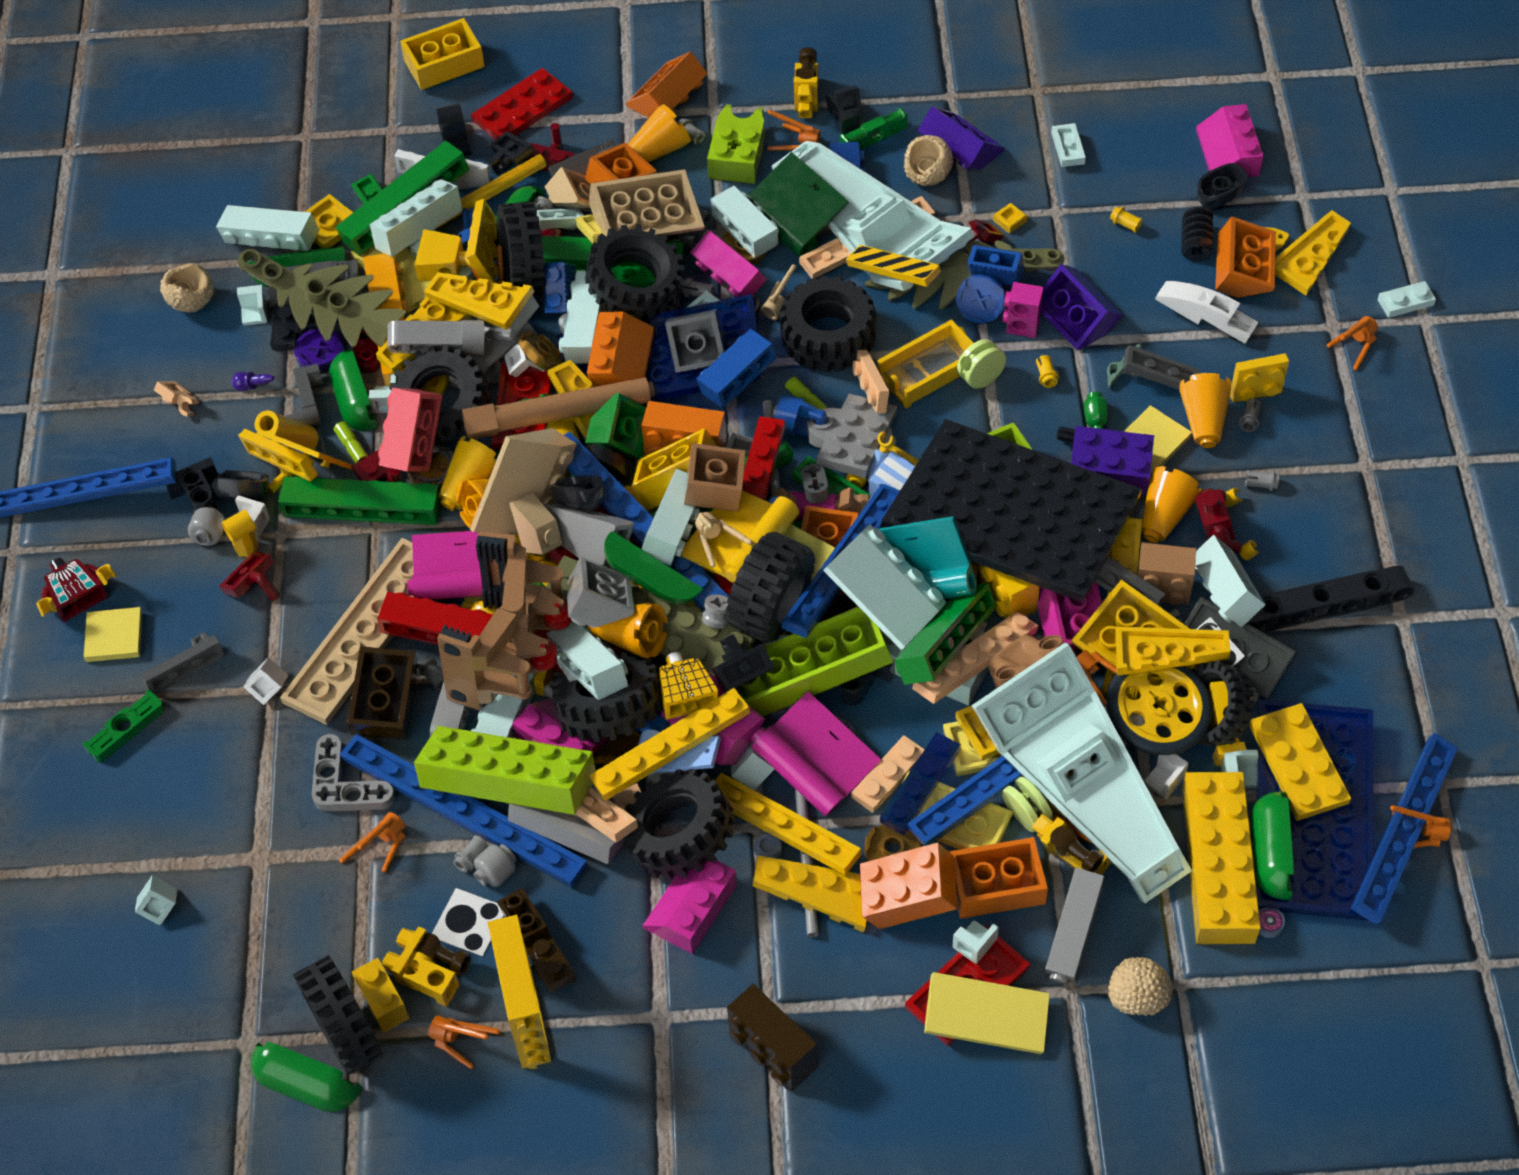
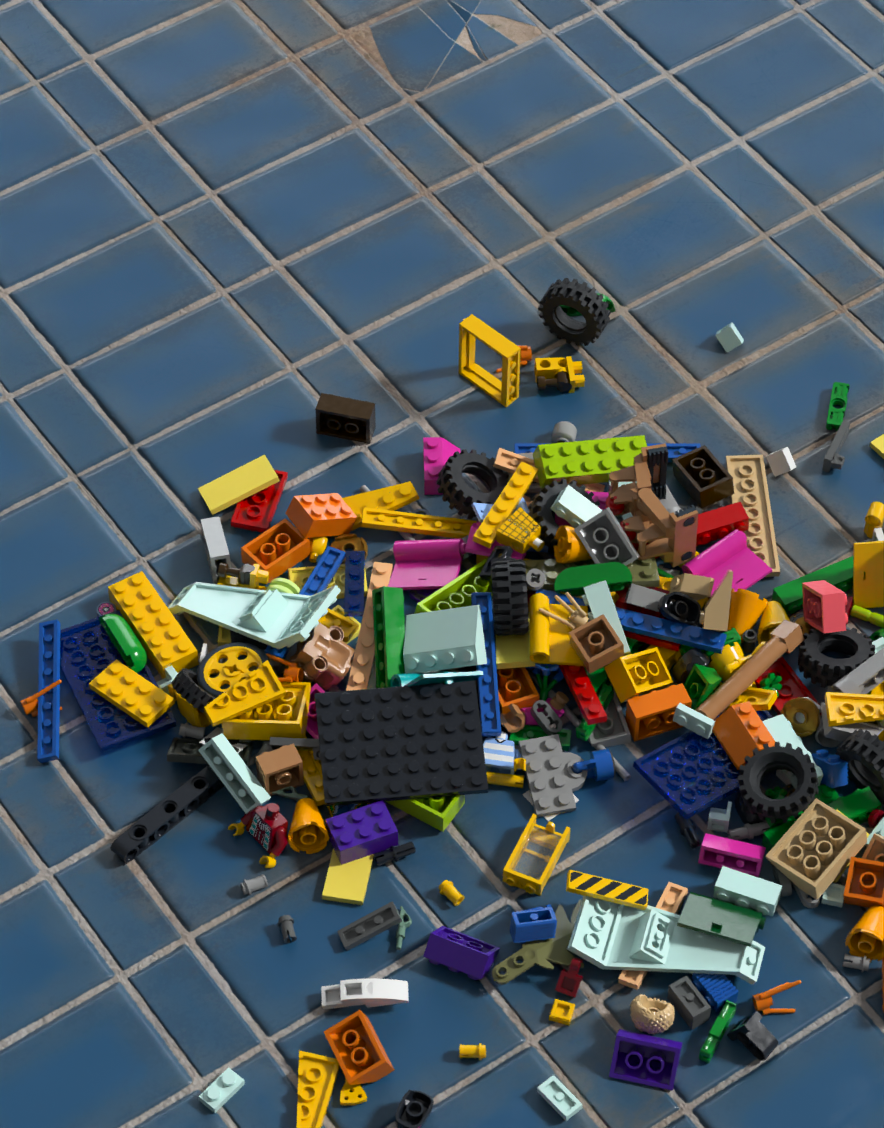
camera: 145 degrees right, 5 degrees down
(250, 571) = (851, 508): dark red plate -> none
(334, 785) = (690, 433): light grey beam -> none
(380, 995) = (567, 345): yellow brick -> none
(388, 829) = (639, 425): orange plant -> none
(465, 860) = (582, 431): light grey pin -> none
(466, 921) = (556, 410): sticker -> none
(540, 946) = (508, 412): dark brown slope -> none
(560, 422) = (737, 663): none -> yellow piece
(658, 378) = (693, 720): none -> light aqua plate
(695, 340) = (698, 760): dark grey slope -> none
(736, 146) = (808, 960): lime brick -> none
(736, 368) = (652, 748): blue brick -> none
(772, 306) = (677, 849): tan plant -> none
(799, 390) = (601, 792): lime piece -> none
(806, 83) = (793, 1033): yellow hips -> none
(827, 299) = (626, 863): black tyre -> none
(871, 381) = (564, 811): light nougat plate -> none
(883, 158) = (689, 1002): none -> dark grey panel
(975, 940) = (267, 511): light aqua panel -> none
(981, 363) = (496, 860): yellowish green head -> none
(1023, 309) = (494, 917): dark pink brick -> none
(1096, 410) = (397, 877): green plant -> none
(1140, 987) = (161, 536): tan hair -> none
(1197, 233) = (409, 1060): black piece -> none
(1206, 406) = (321, 911): light orange cone -> none
(1259, 378) = (294, 945): yellow plate -> none
(1361, 331) = (240, 1040): orange plant -> none

